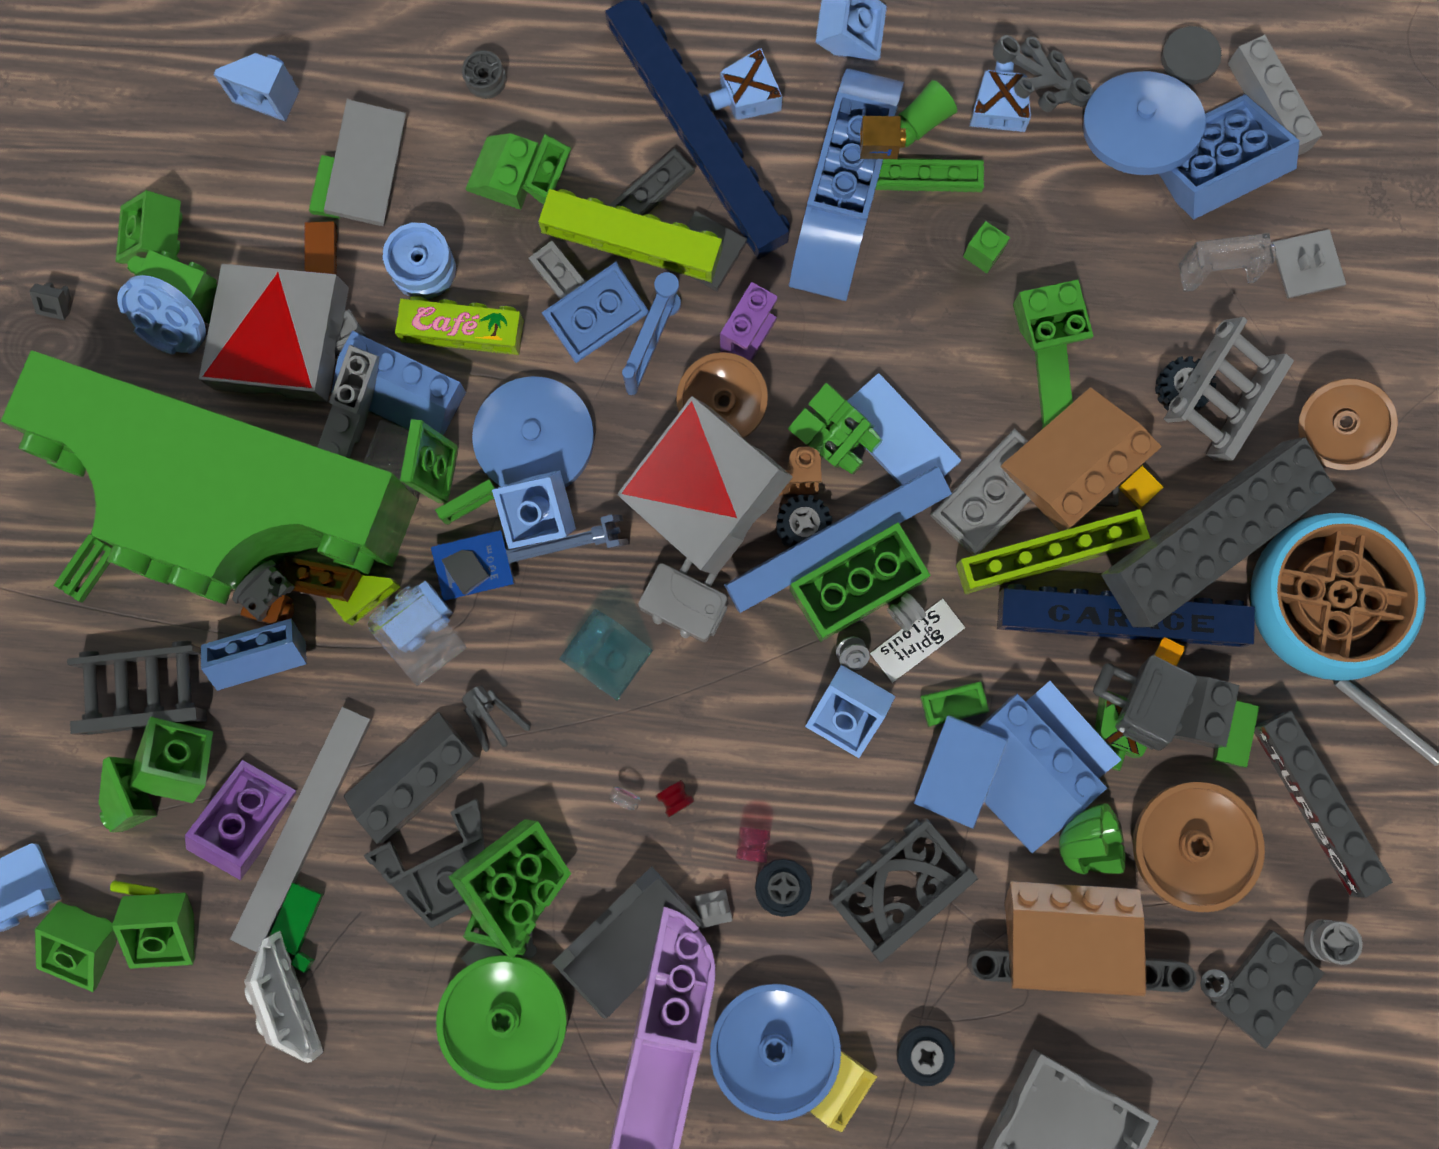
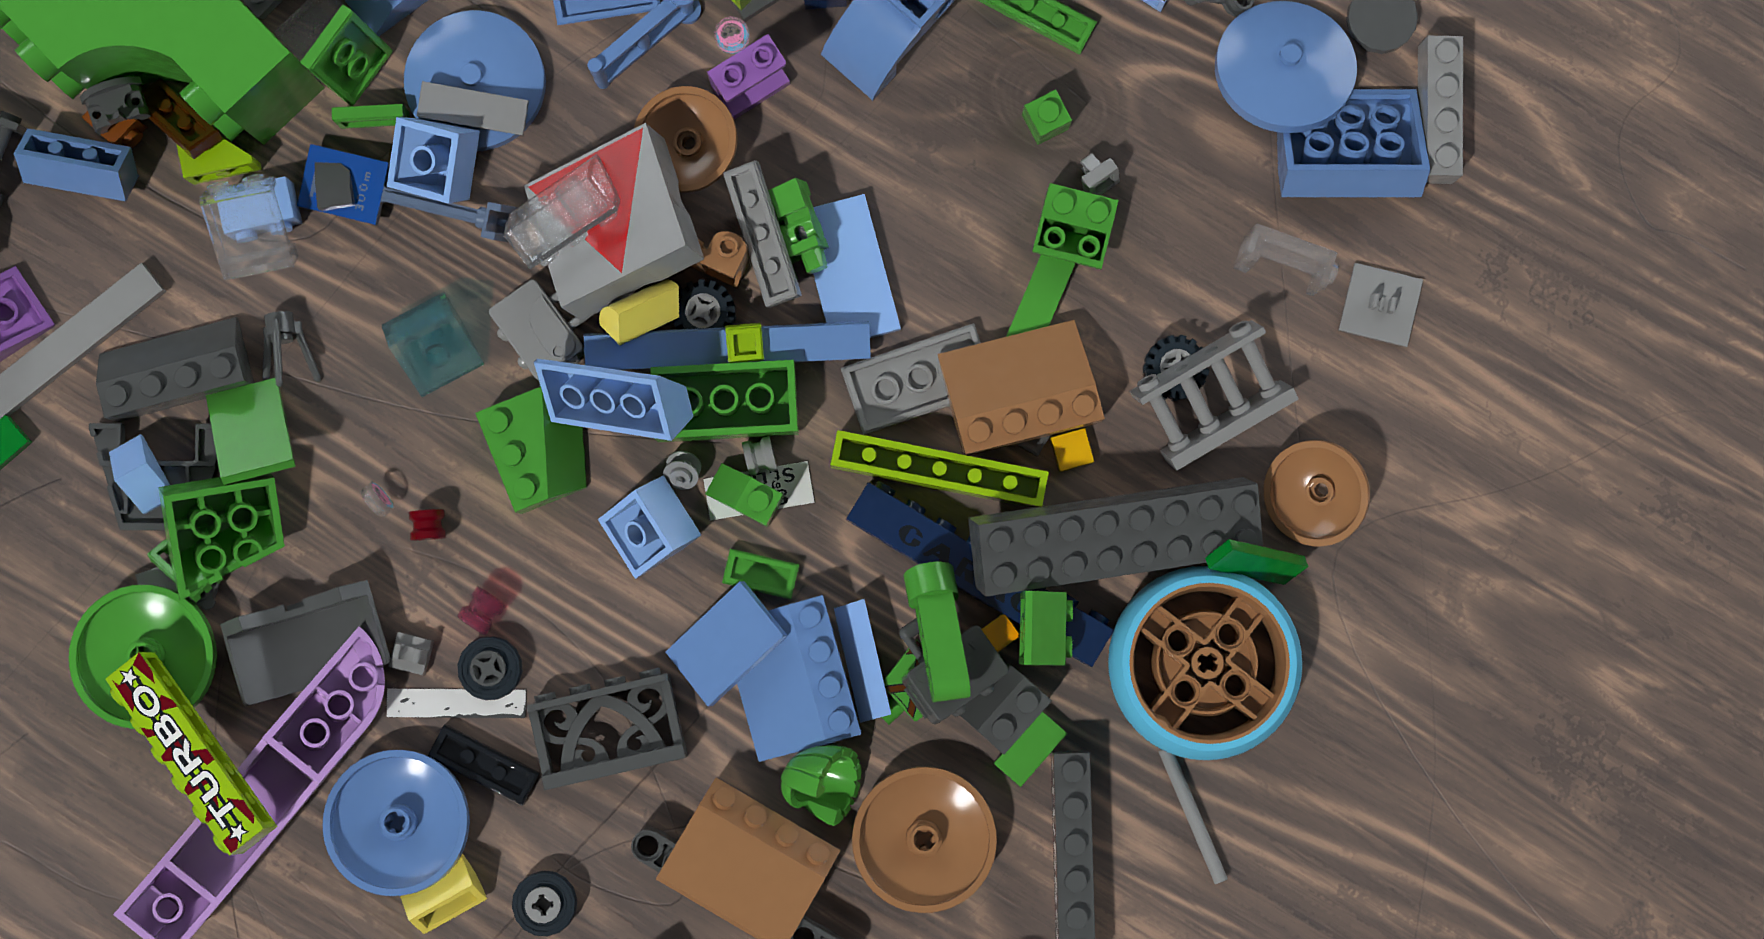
camera: 20 degrees right, 5 degrees up
(425, 874) = (138, 473): none -> light blue slope
(499, 794) = (250, 431): none -> bright green tile
(546, 455) = (472, 108): none -> light grey tile
(585, 1080) = (190, 753): none -> brick
(664, 496) = (563, 213): none -> clear slope
(713, 305) = (731, 35): none -> clear tile
(729, 690) = (533, 455): none -> bright green wedge
(761, 544) = (641, 311): none -> light yellow brick
(766, 932) = (453, 704): none -> white sticker
(779, 621) = (613, 399): none -> light blue slope
(817, 967) = (484, 764): none -> black tile
(820, 435) = (762, 234): none -> light grey tile
(852, 528) = (744, 342): none -> lime tile
(911, 647) = (745, 494): none -> bright green slope
(1048, 271) = (1098, 176): none -> light grey tile
(1130, 673) = (933, 594): none -> bright green beam
(1205, 631) = (1044, 628): none -> bright green slope
(1335, 498) = (1256, 562): none -> green tile

